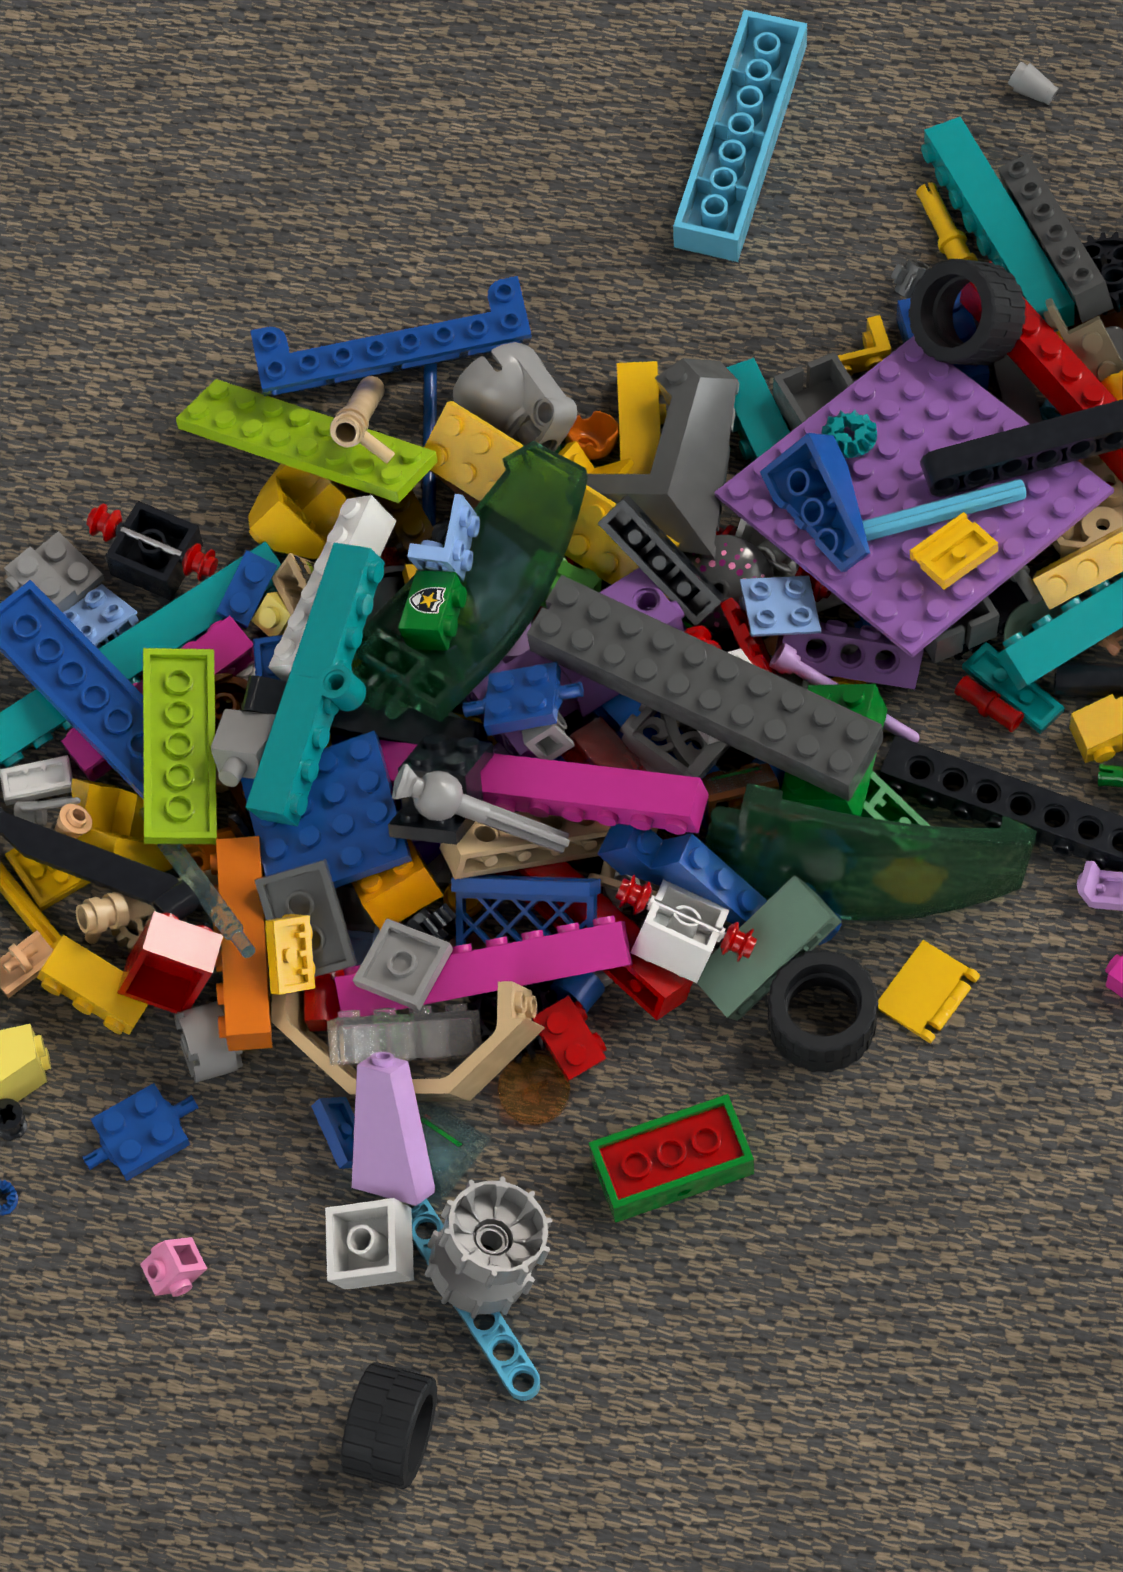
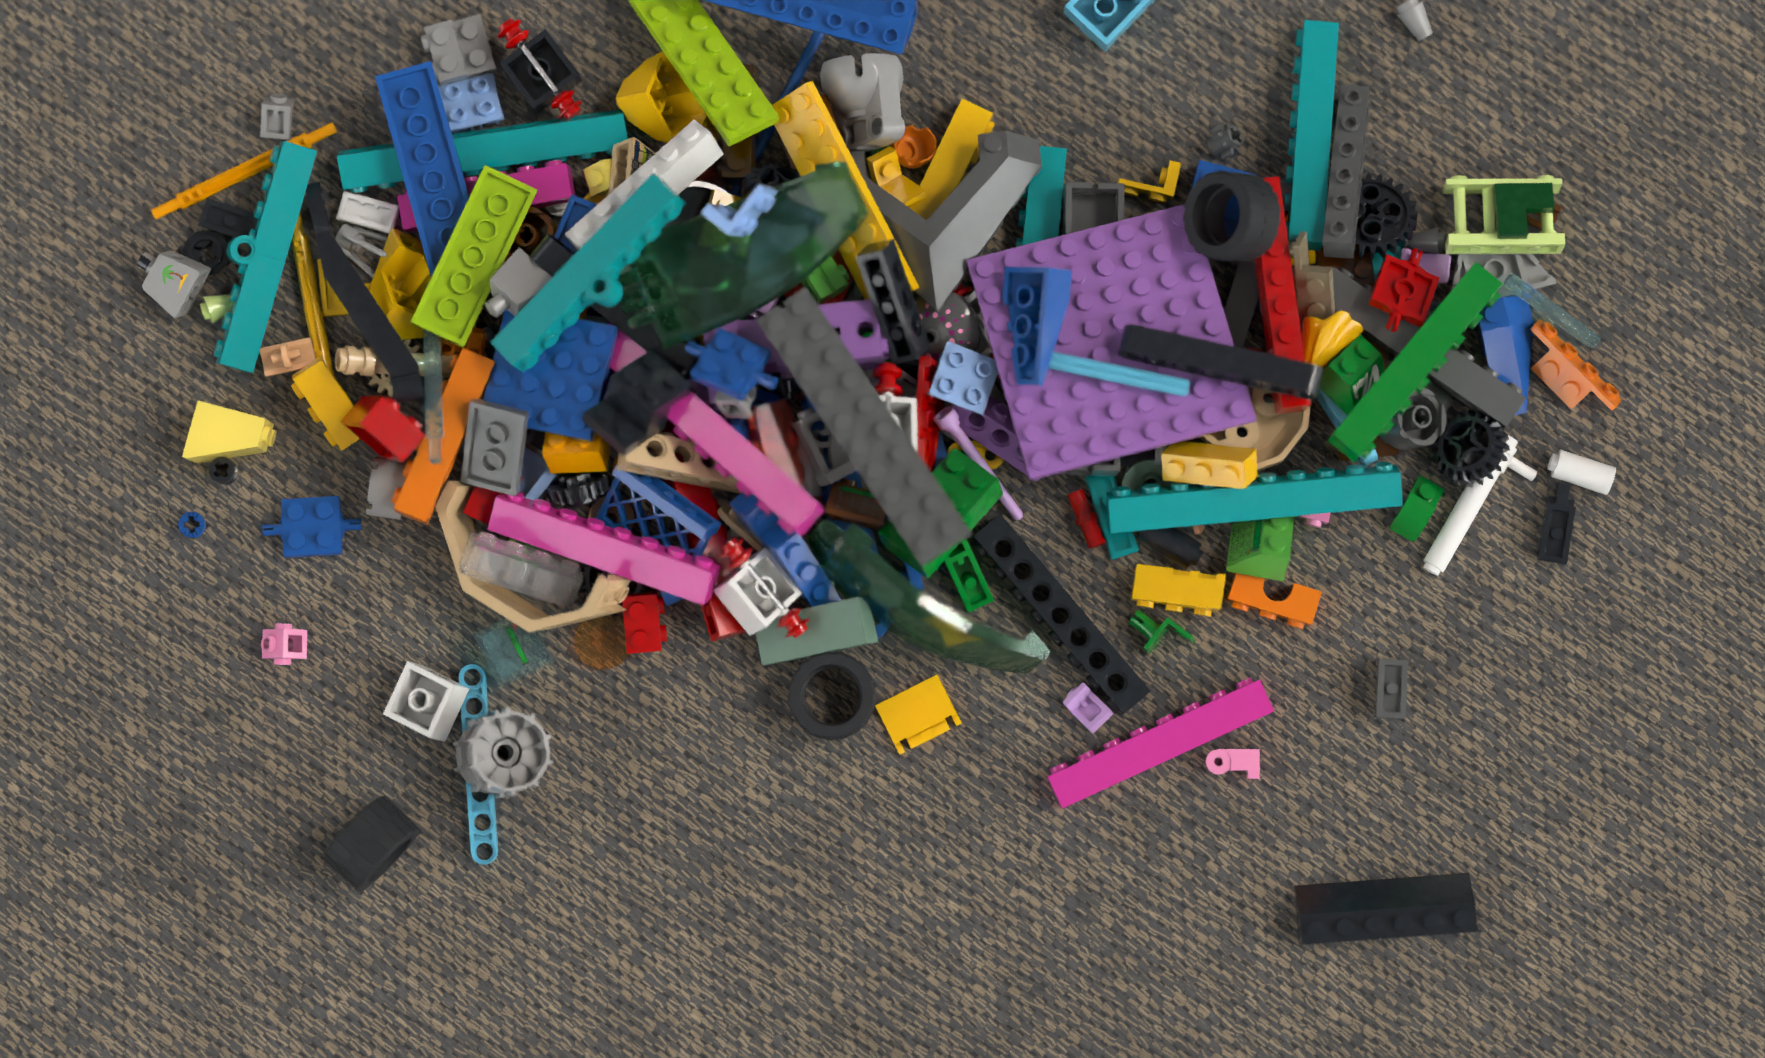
camera: 25 degrees right, 20 degrees up
(73, 821) = (373, 269): light nougat cone -> none
(246, 589) = (589, 145): blue plate -> none
(290, 954) = (468, 471): yellow bracket -> none
(337, 1124) = (450, 606): blue plate -> none
(352, 421) = (725, 64): tan cylinder -> none
(388, 1133) = (474, 637): lavender slope -> none
(403, 964) = (544, 519): light grey plate -> none
(432, 610) = (705, 254): green brick -> none
(441, 796) = (627, 419): light grey piece -> none
(671, 1158) = (668, 748): brick -> none
(864, 437) = (1097, 279): teal gear -> none
(951, 240) = (1274, 122): yellow pin -> none
(954, 550) = (1105, 414): yellow plate -> none

